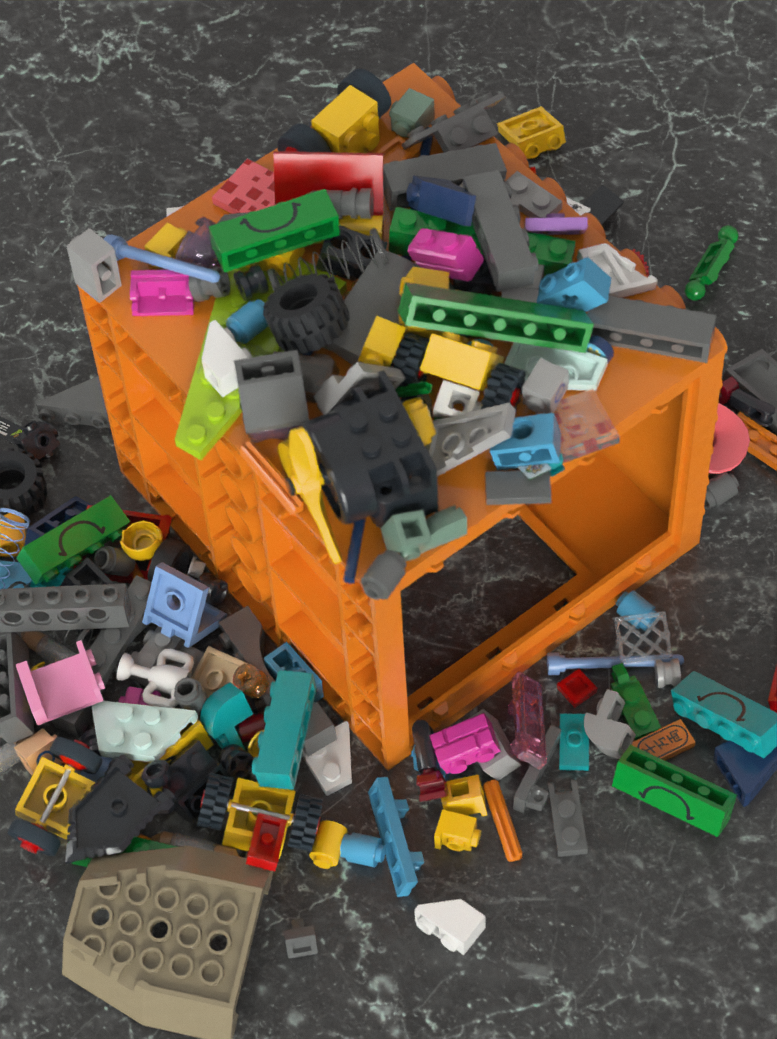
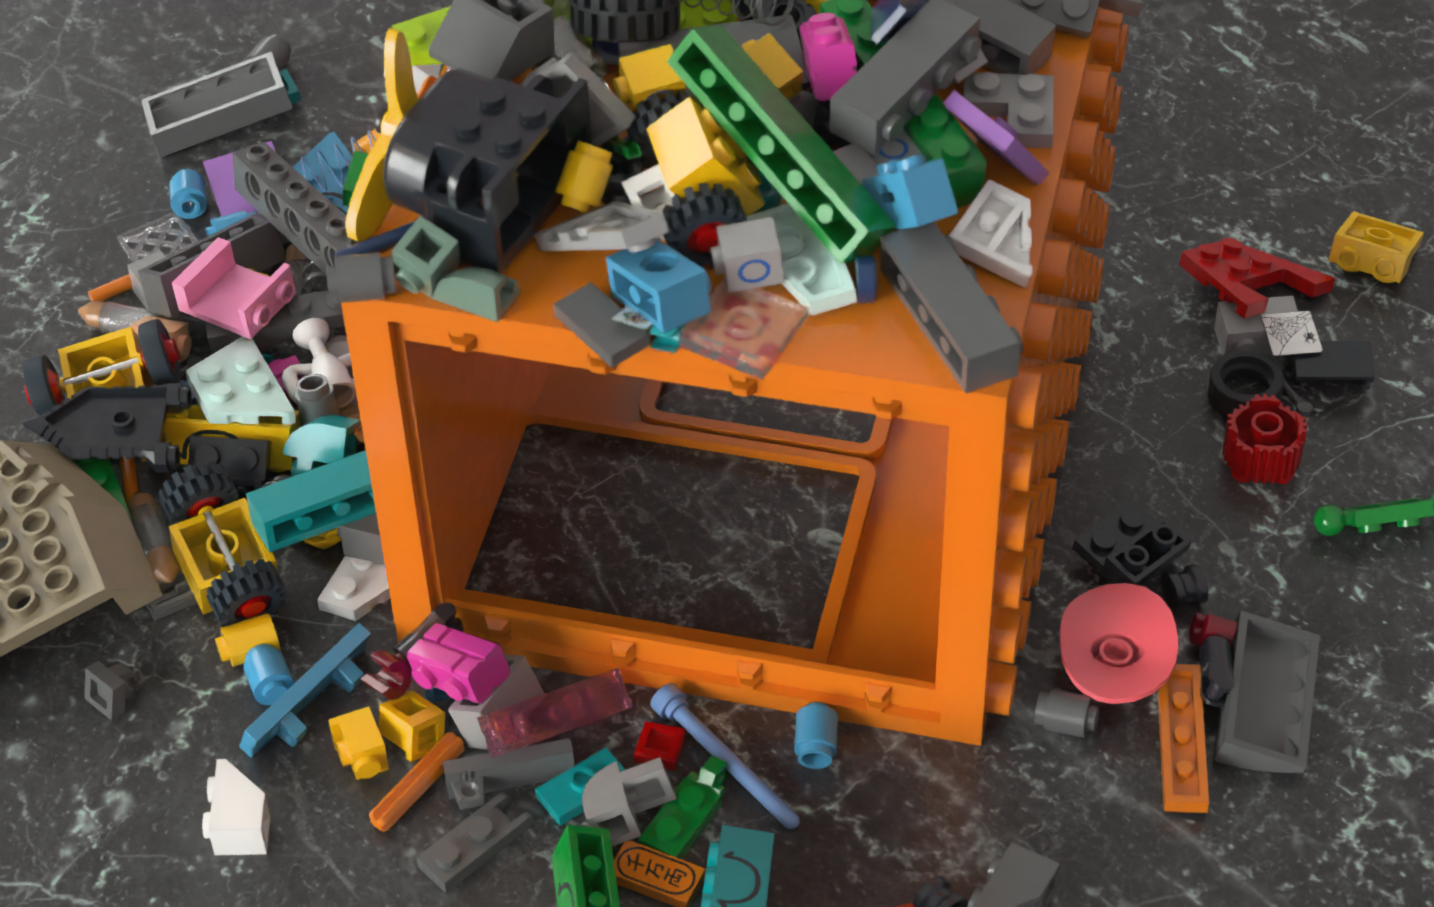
camera: 50 degrees right, 10 degrees down
(156, 774) = (192, 429): black tile -> none
(266, 842) = (176, 565): red slope -> none
(645, 657) = (753, 739): clear window -> none
(667, 672) = (753, 812): light grey wheel -> none

